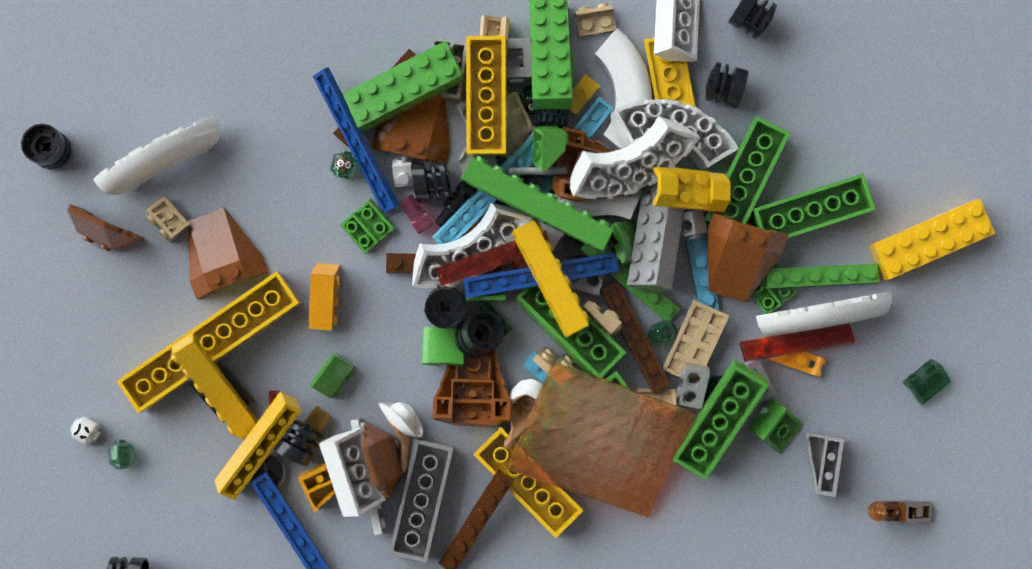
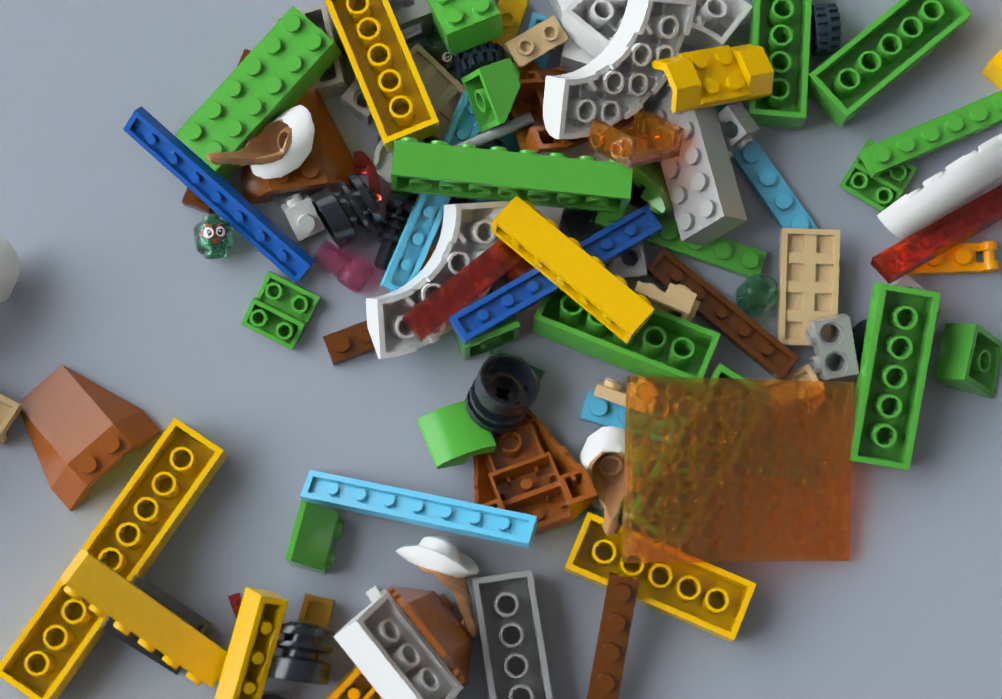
camera: 30 degrees left, 10 degrees down
(324, 297) = (258, 432): light orange wedge -> none
(400, 127) = (277, 147): none -> hat
(401, 385) = (420, 508): none -> medium azure plate
(448, 317) = (453, 369): black wheel -> none
(453, 153) = (365, 166): none -> clear red slope
(590, 120) = (535, 42): none -> tan bracket
(624, 215) = (645, 142): none -> clear orange panel
(740, 256) = (818, 143): dark orange wedge -> none
(778, 181) = (825, 29): none -> black wheel

